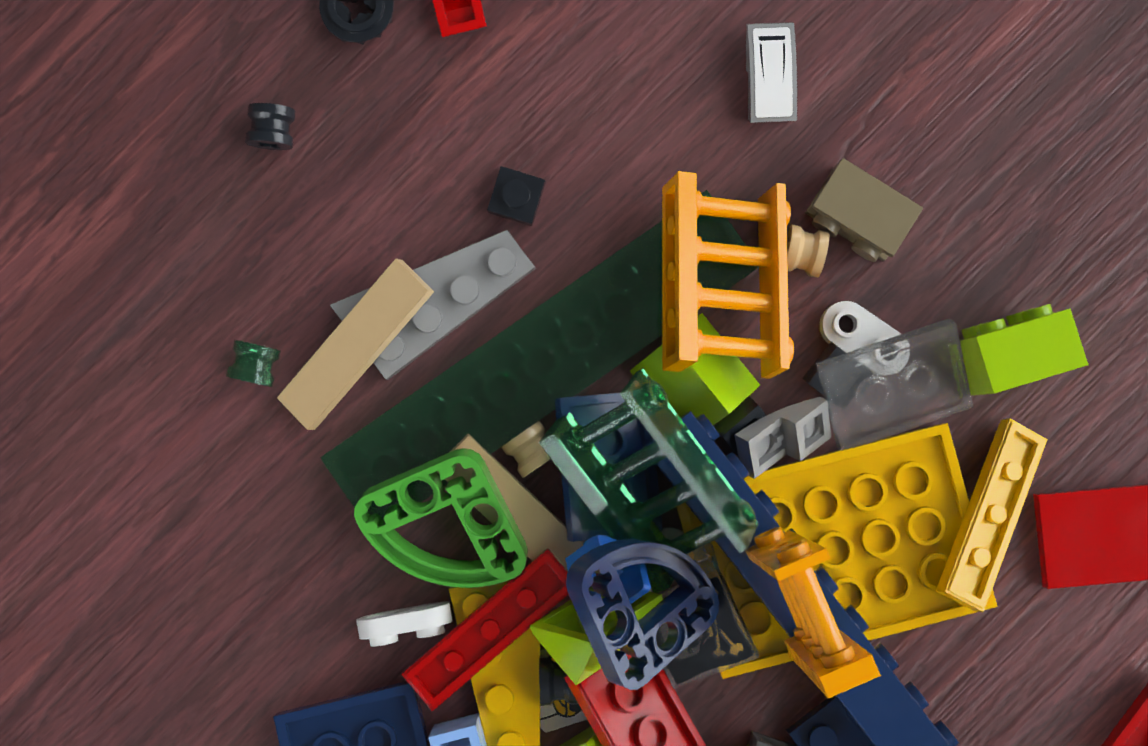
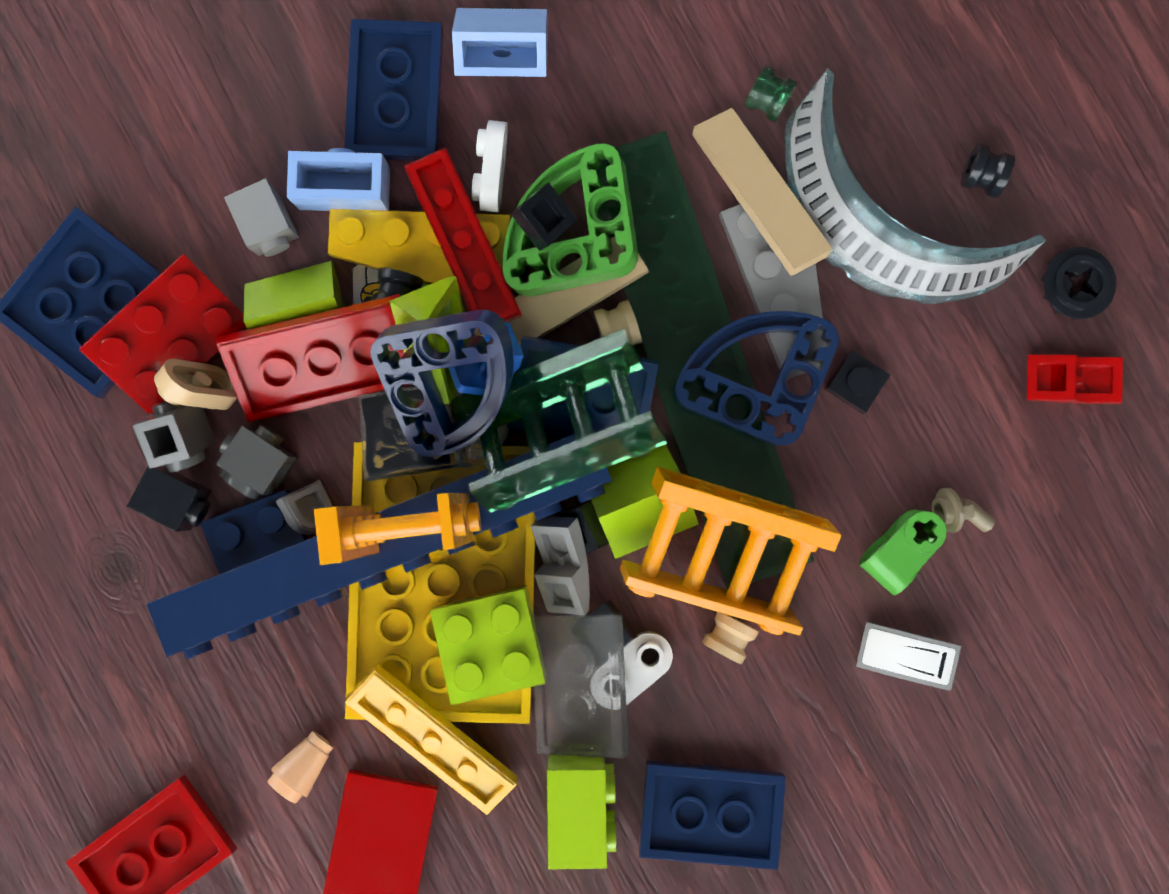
camera: 105 degrees right, 0 degrees up
(277, 650) = (500, 42): none -> light blue brick
(374, 231) = (865, 238): none -> windscreen
(446, 554) = (544, 216): none -> black plate
(557, 268) = (780, 398): none -> dark blue beam
(617, 68) = (956, 510): none -> dark tan plate
(674, 107) = (897, 555): none -> bright green piece
(801, 706) = (300, 505): none -> light grey tile
(863, 211) = (751, 703): dark tan brick -> none
(885, 486) = (488, 645): none -> lime brick
(981, 219) = (712, 815): none -> dark blue plate
(1057, 636) = (300, 767): none -> light nougat cone

